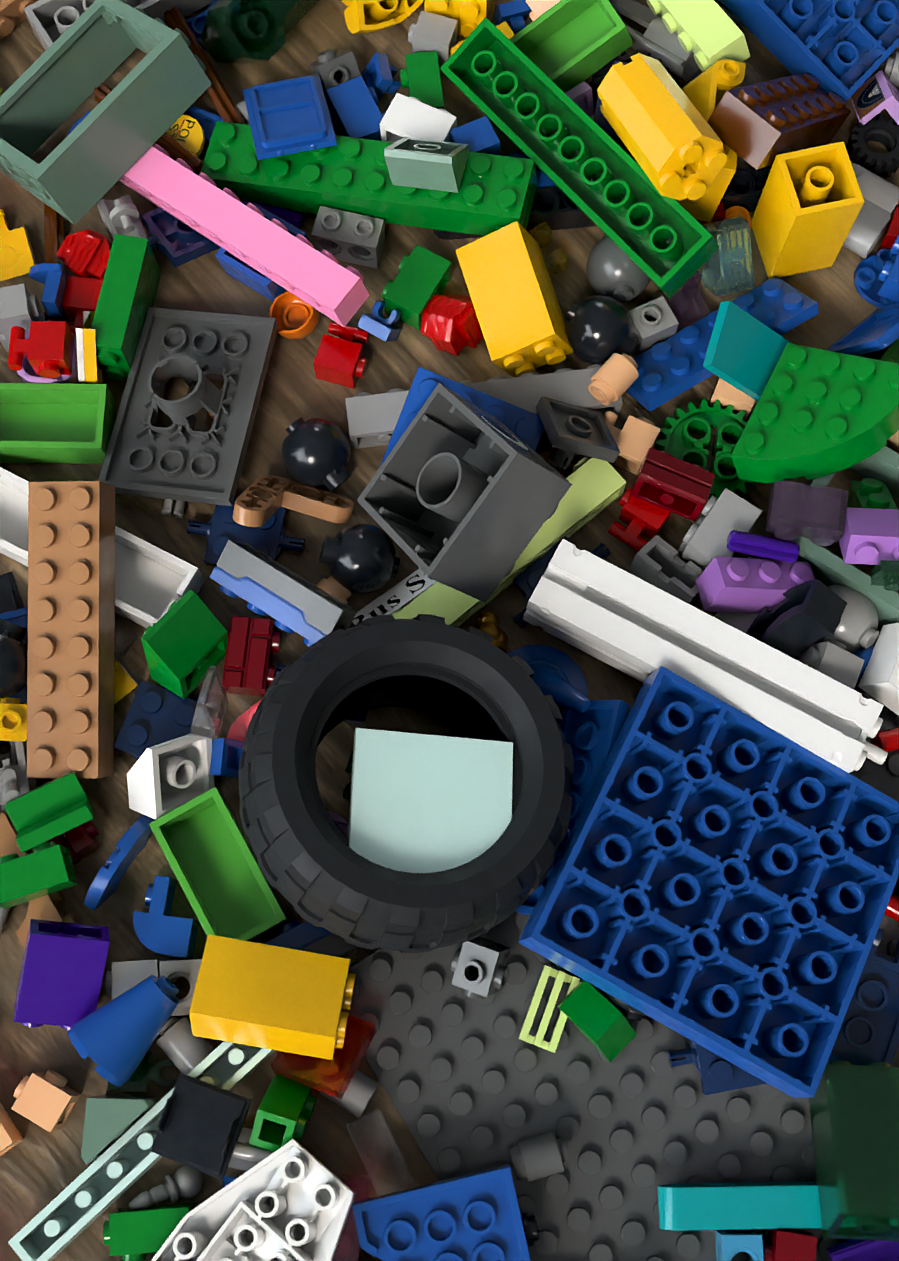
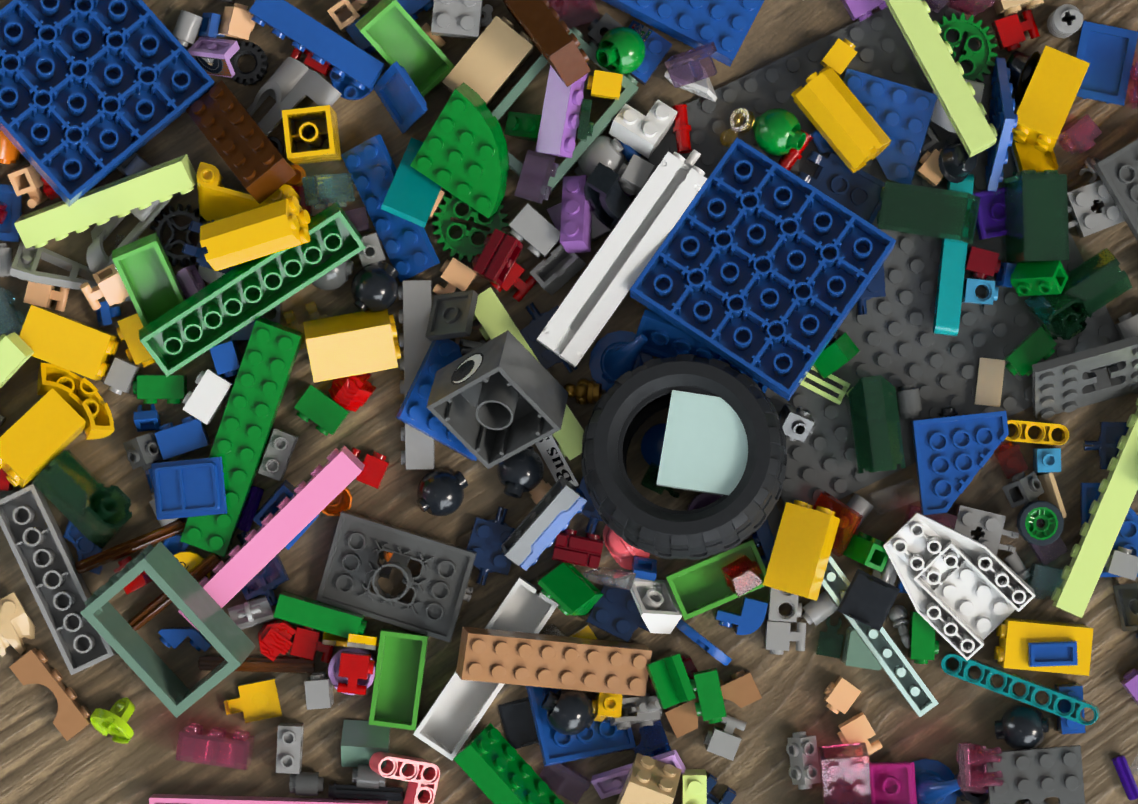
camera: 80 degrees left, 15 degrees up
(54, 278) = (295, 661): blue tile -> none
(60, 973) = (769, 679): dark purple brick -> none
(125, 1028) = (807, 641): blue cone -> none
(226, 907) = (742, 575): none -> clear red brick
(271, 492) = (481, 483): medium nougat beam -> none
(379, 325) = (350, 438): blue tile -> none
(426, 164) = (249, 394): sand green slope -> none
(494, 1102) = (875, 425): none -> clear green brick
(613, 378) = (416, 285): light nougat brick -> none
(763, 546) = (553, 208): dark purple axle -> none

